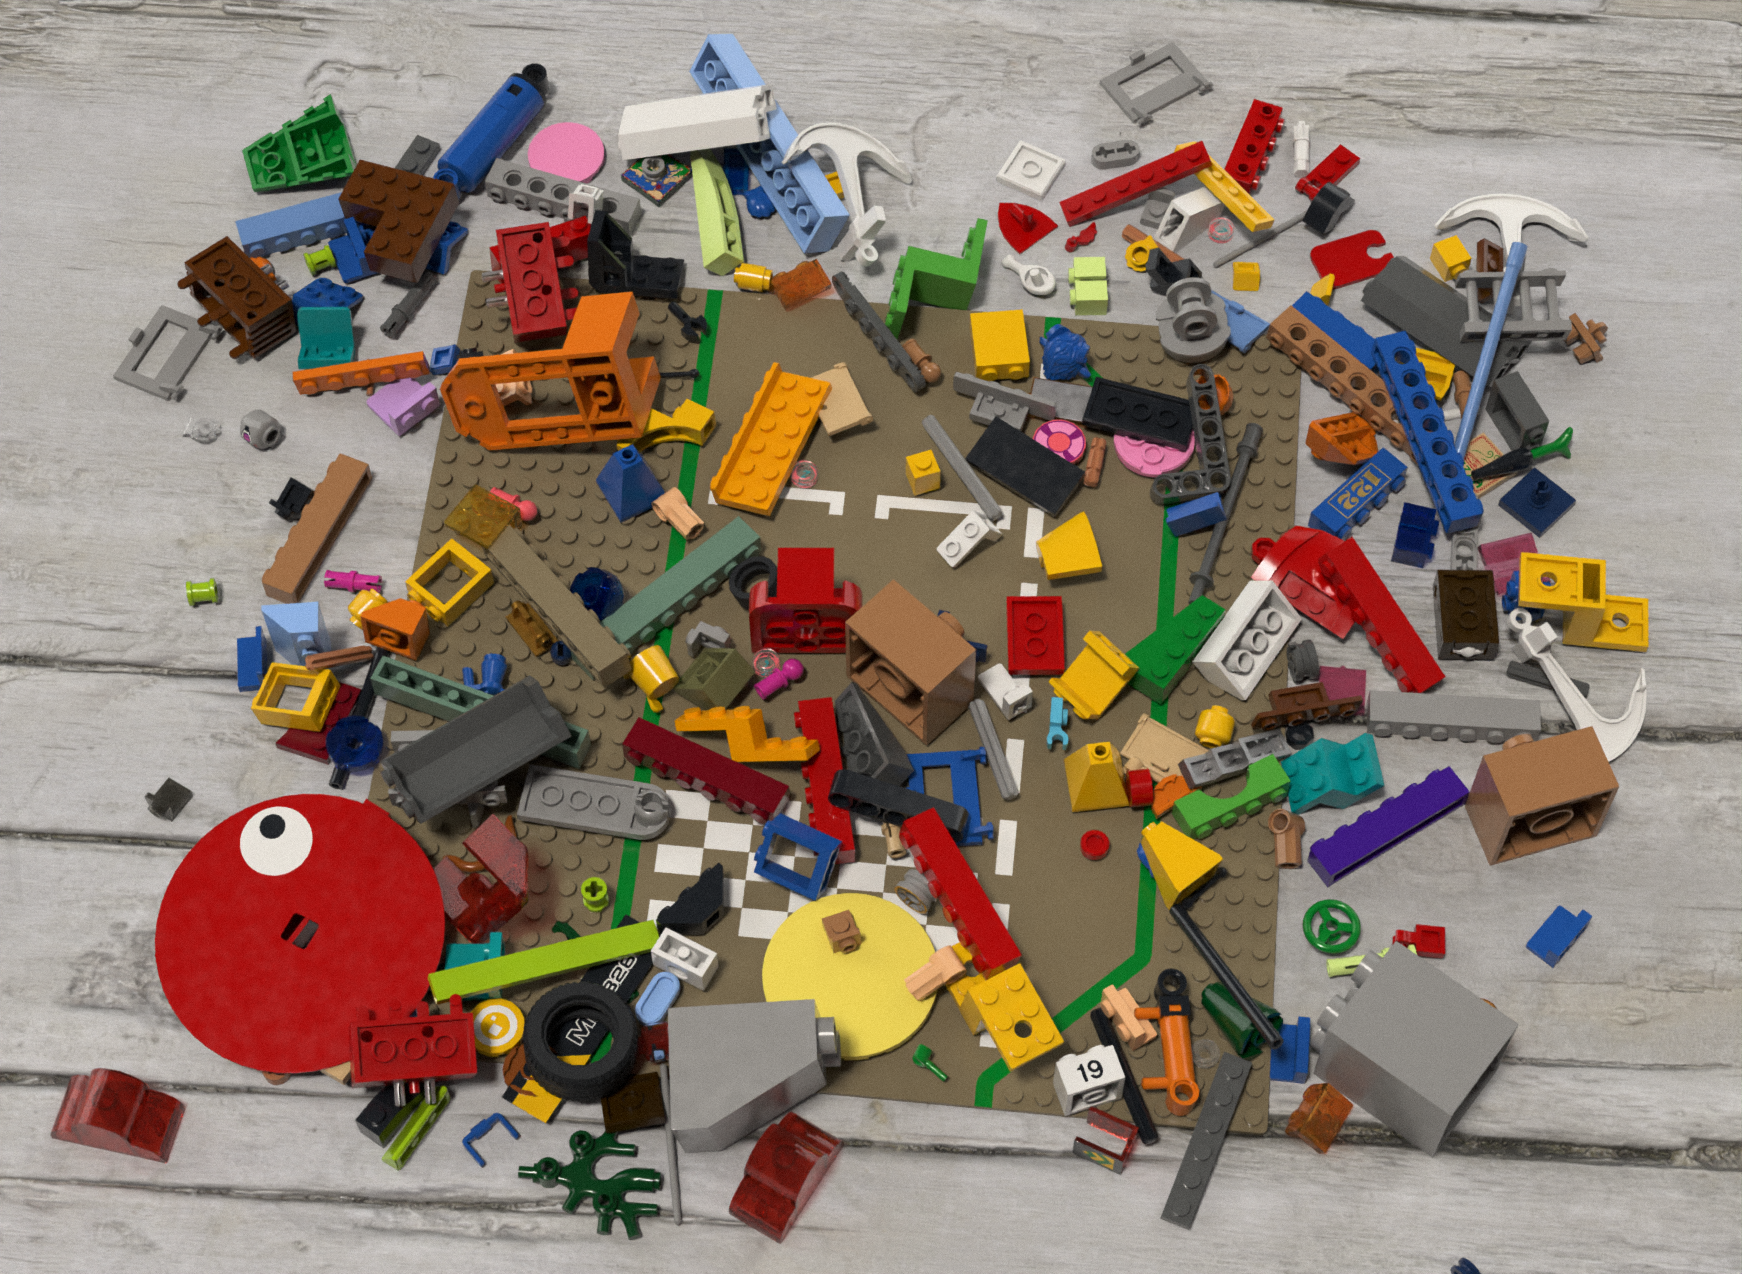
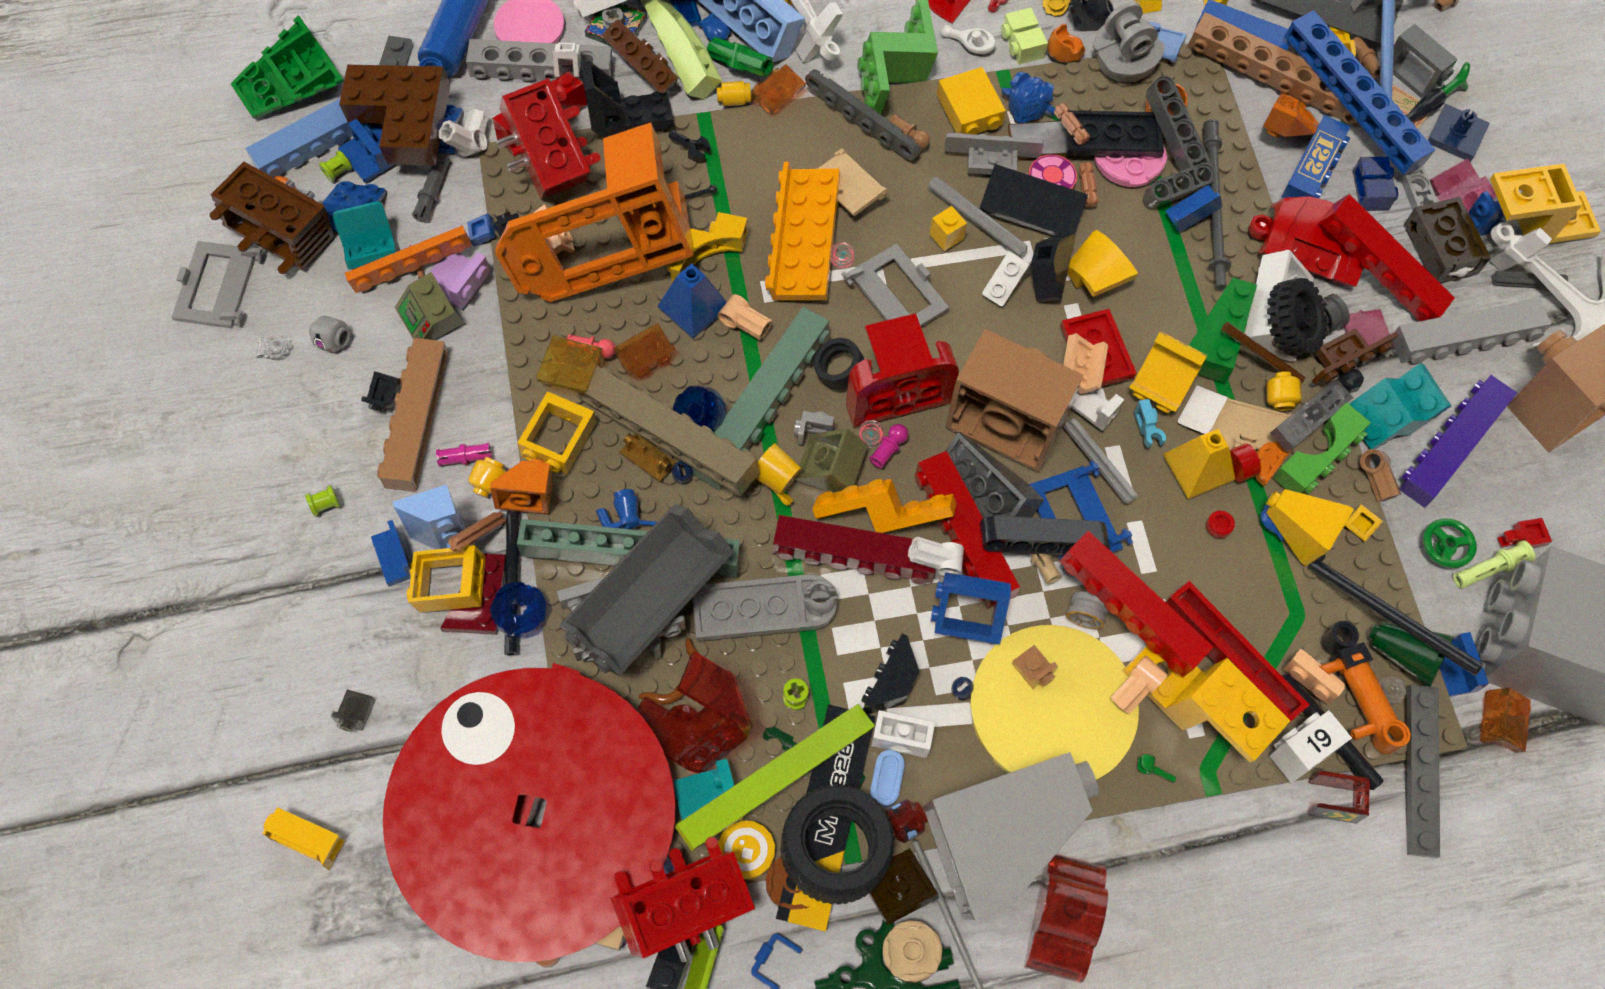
camera: 20 degrees left, 5 degrees up
(85, 902) = (303, 837): none -> yellow window
(364, 428) = (427, 309): none -> olive slope
(462, 263) = (469, 138): none -> white piece
(564, 520) = (644, 349): none -> clear orange bracket
(621, 1163) = (912, 951): none -> tan tile
(668, 216) = (640, 56): none -> reddish brown bracket
(733, 954) = (940, 714): none -> white sticker
(764, 939) = (966, 692): none -> dark blue hinge
(771, 240) = (740, 57): none -> green piece
(782, 797) = (942, 557): none -> white piece
(832, 532) = (883, 298): none -> light grey piece
(1005, 645) = (1087, 360): none -> light nougat bracket
(1016, 536) = (1051, 265): none -> black slope
(1049, 972) = (1231, 644): none -> red brick
(1094, 393) = (1071, 123): none -> nougat axle
(1122, 724) = (1202, 410): none -> white sticker
(1129, 307) = (1064, 46): none -> orange hair
(1203, 681) = (1260, 351): none -> reddish brown bar
(1248, 882) = (1363, 522): none -> yellow slope
(1253, 652) = (1297, 316): none -> black wheel

